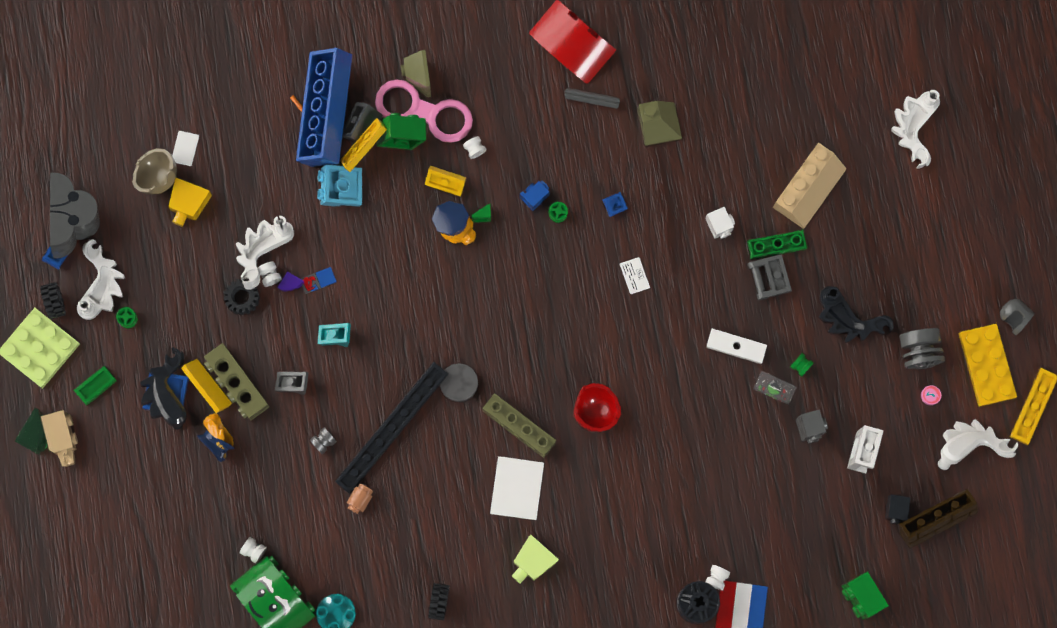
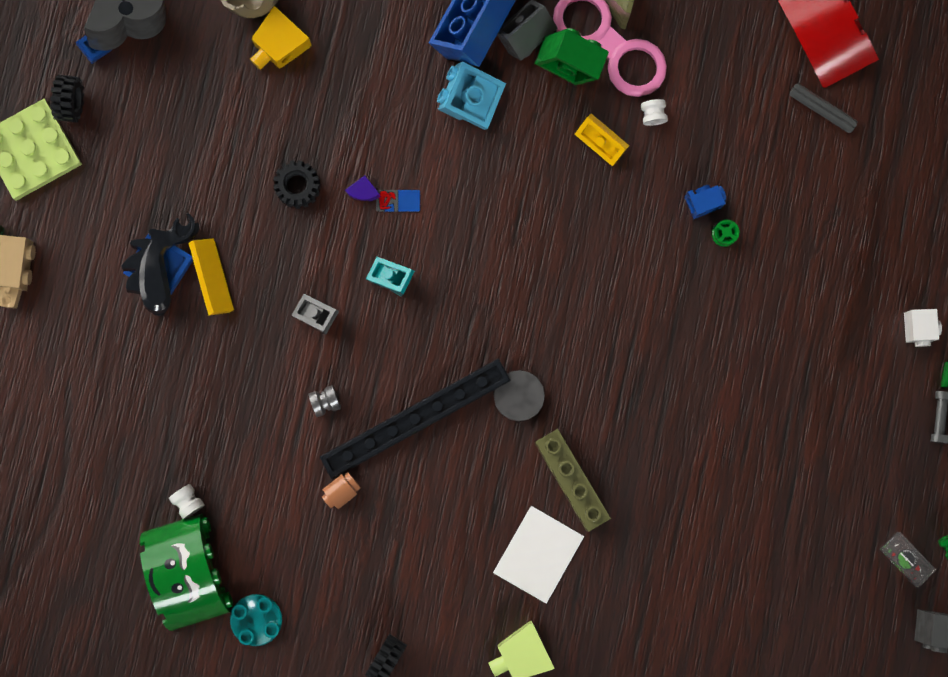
camera: 25 degrees right, 5 degrees up
(95, 385) = (79, 222): green tile -> none
(100, 292) = (128, 112): white animal -> none
(124, 315) = (146, 150): green wheel -> none
(216, 437) = (197, 346): piece -> none
(220, 356) = (231, 250): olive brick -> none
(266, 239) = (342, 127): white animal -> none
(269, 274) = (341, 169): white wheel -> none
(363, 144) = (519, 54): yellow tile -> none
(454, 223) = (592, 196): dark blue piece -> none
(482, 215) = (630, 200): green slope -> none
(597, 408) = (677, 498): red cylinder -> none
(615, 204) = (799, 251): blue tile -> none
(634, 275) = (788, 349): white sticker -> none
(659, 122) = (894, 170): olive slope -> none
(747, 349) = (893, 497): white tile -> none

